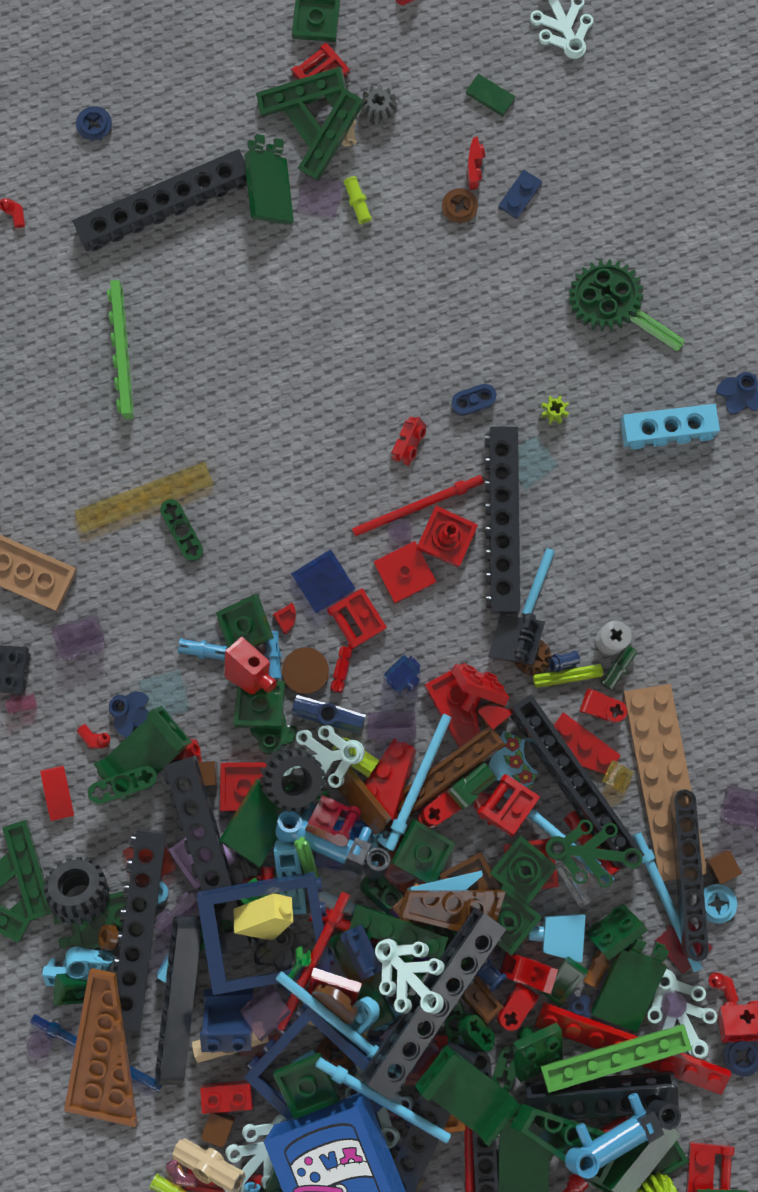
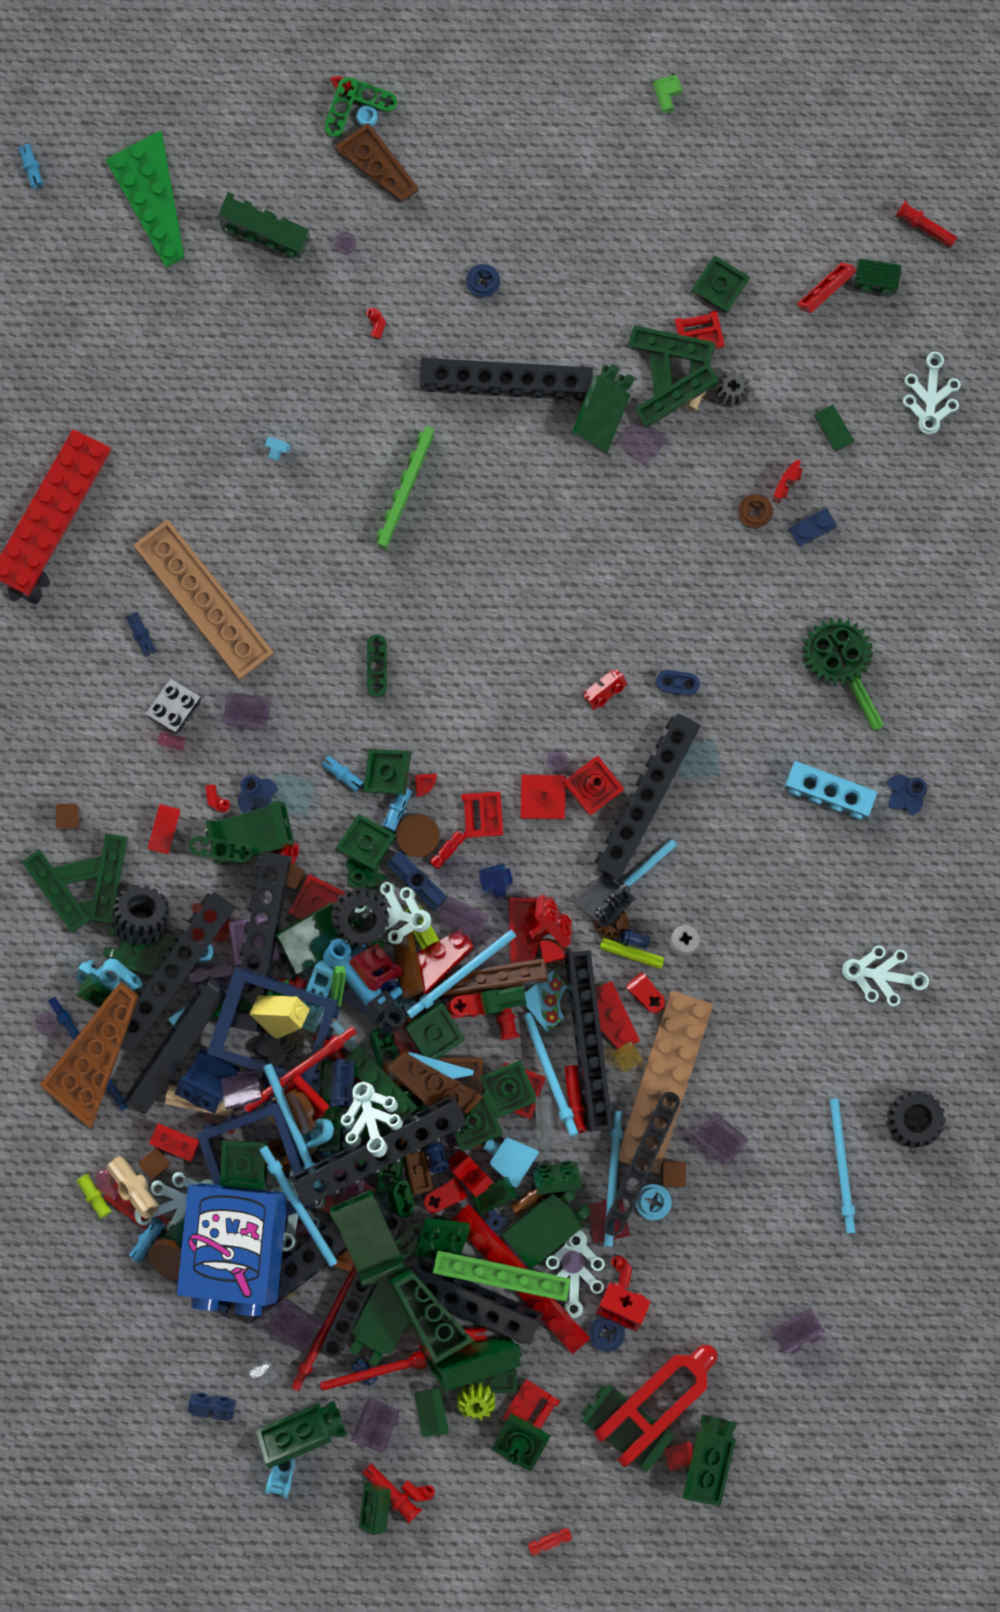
camera: 25 degrees right, 0 degrees up
(108, 937) = (146, 965): reddish brown tile -> none
(143, 497) = (359, 622): clear yellow tile -> none
(248, 667) = (371, 808): red torso -> none
(302, 960) = (290, 1064): green hand -> none
(323, 581) = (471, 769): clear blue plate -> none
(357, 200) = (671, 461): lime pin -> none
(459, 488) = (625, 750): red bar -> none
(515, 809) = (528, 1036): red plate -> none
(552, 415) = (746, 723): lime gear -> none
(589, 852) = (568, 1101): dark green plant -> none
(619, 667) = (678, 968): dark green axle -> none
(643, 1126) = (491, 1336): dark azure piece -> none

